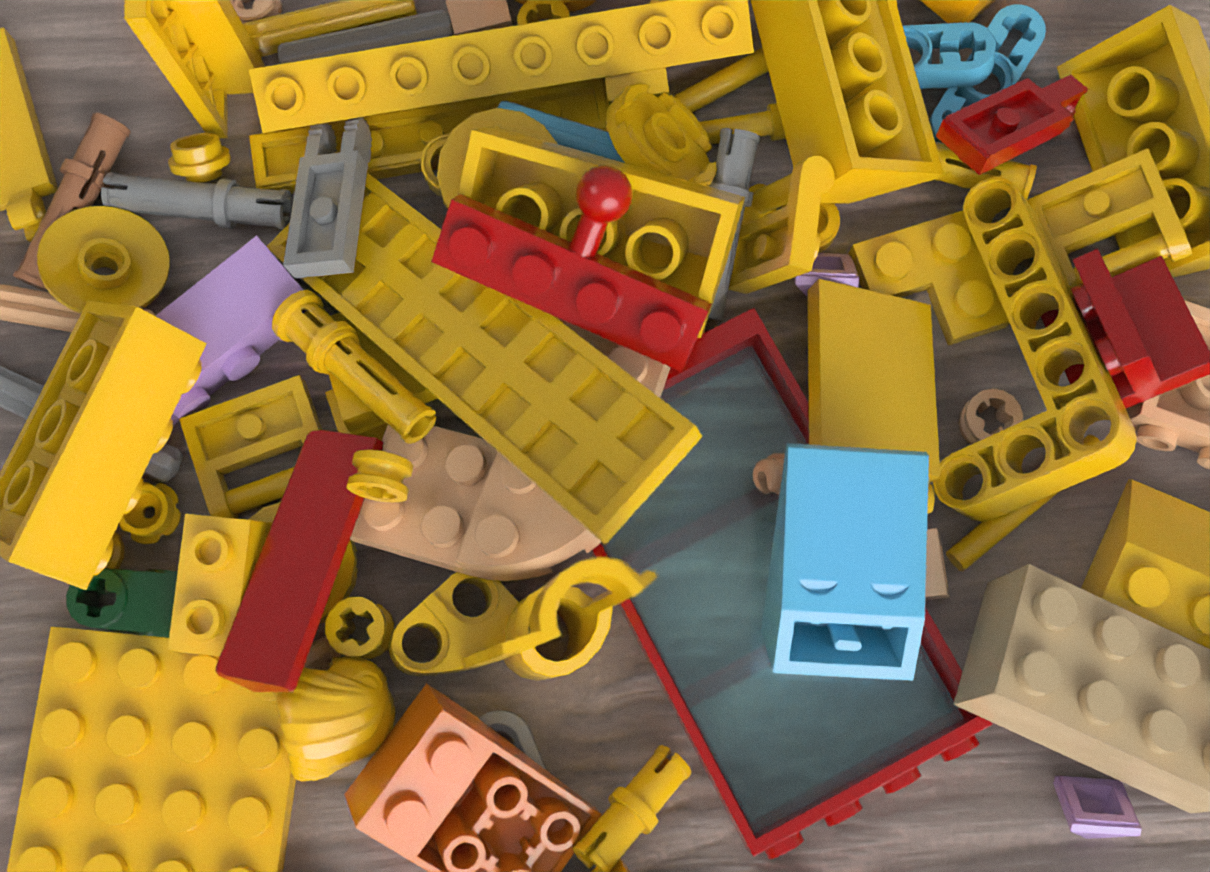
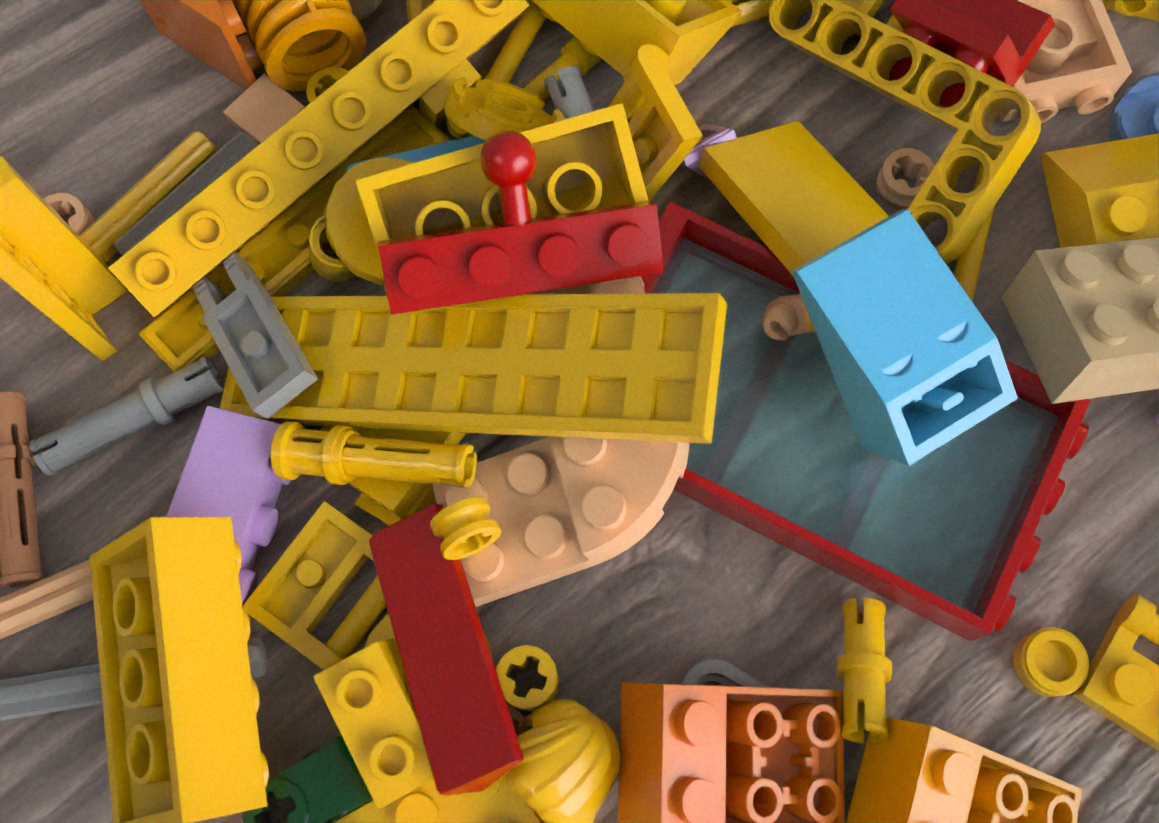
camera: 35 degrees left, 5 degrees down
(98, 239) = (64, 499): yellow dish -> none
(164, 521) = (285, 709): yellow plate -> none
(198, 157) = (105, 378): yellow plate -> none
(503, 626) = (661, 589): yellow panel -> none
(942, 261) = (786, 84): yellow plate -> none

